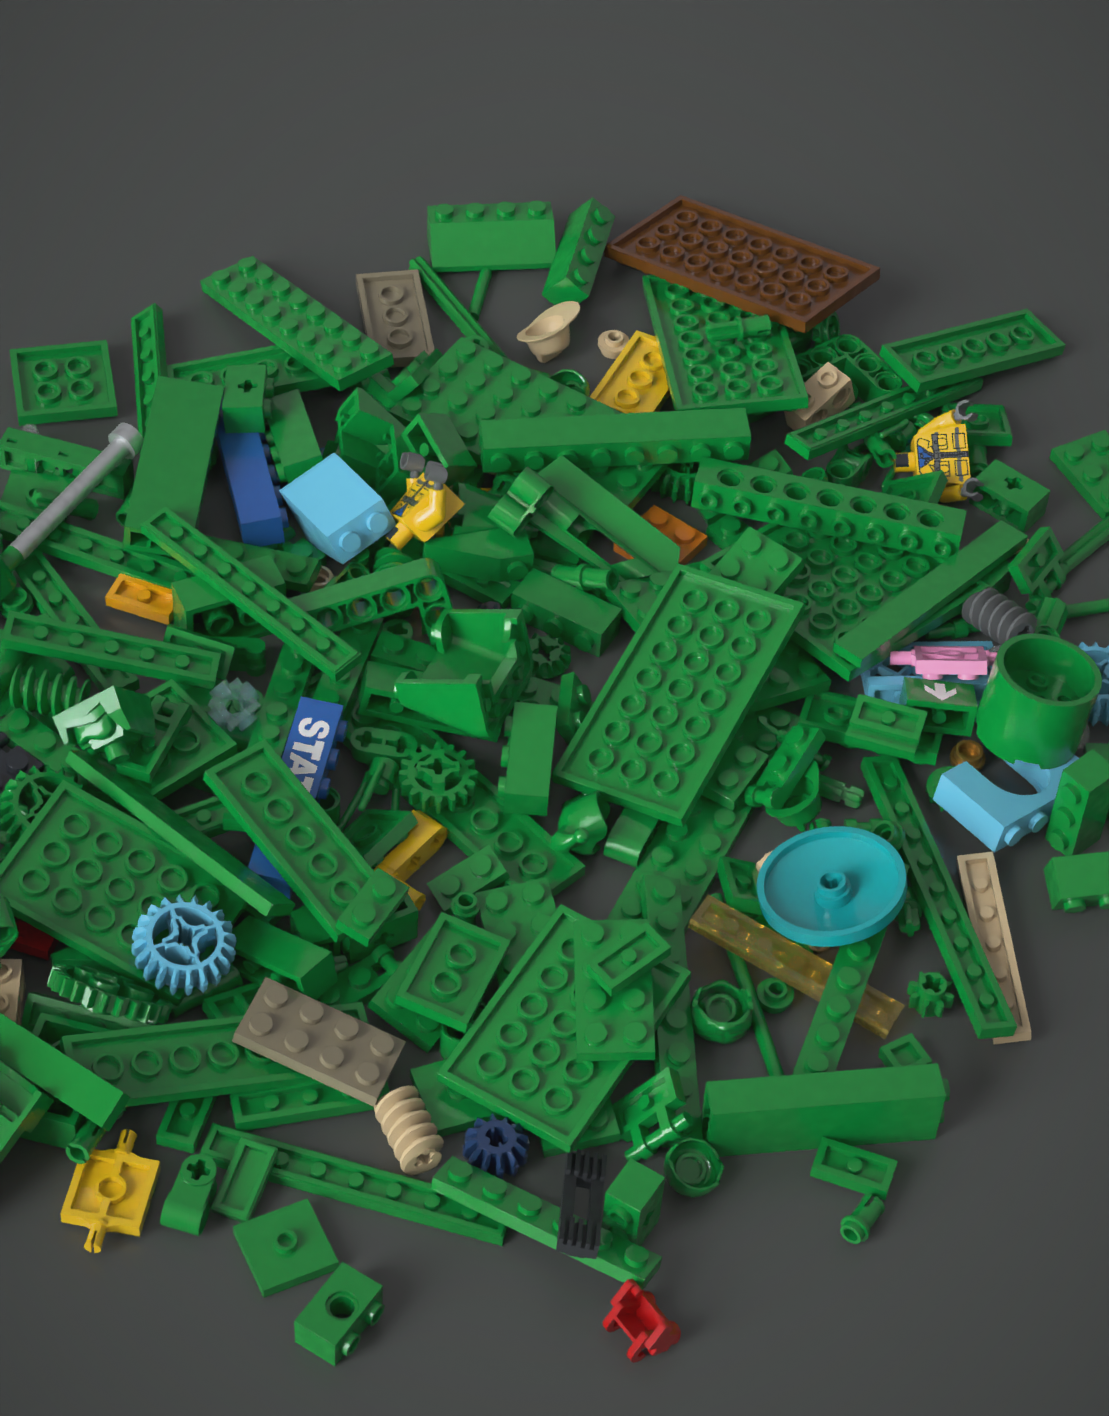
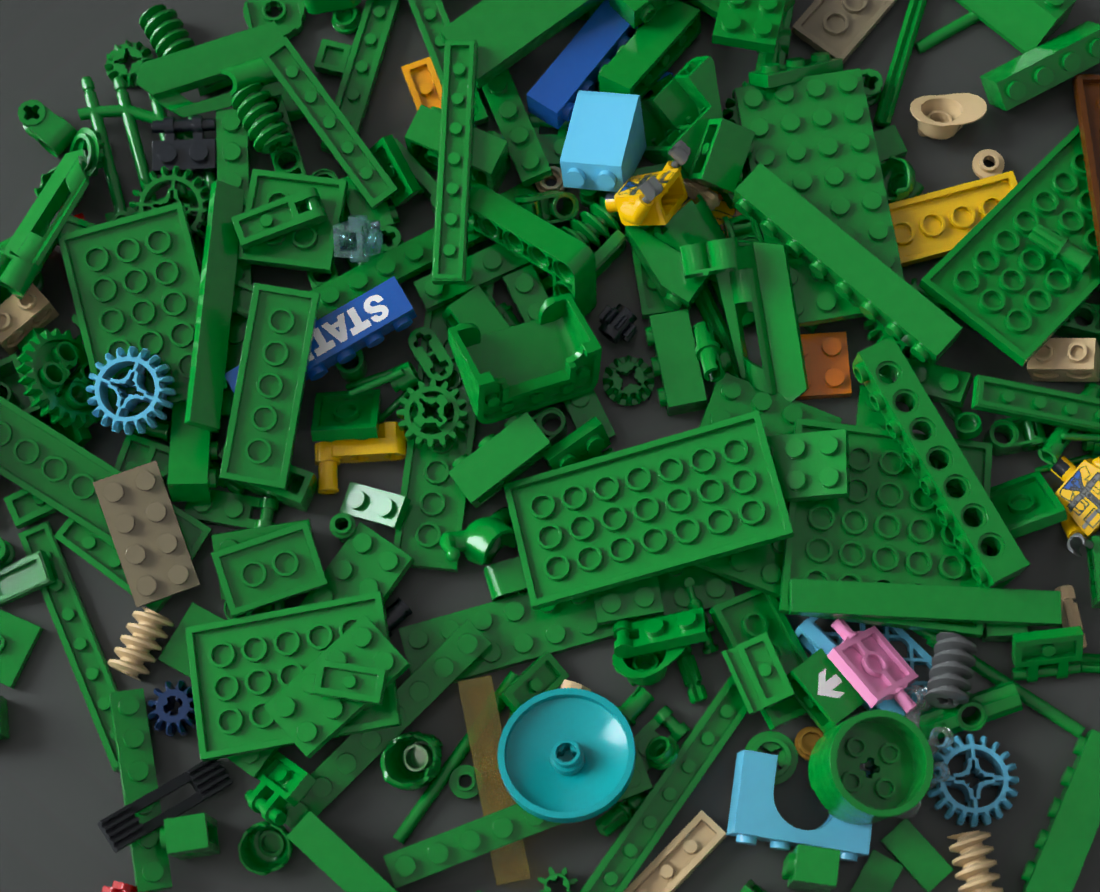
camera: 60 degrees right, 25 degrees up
(107, 723) = (242, 189): green brick -> none
(372, 907) = (257, 479): green plate -> none

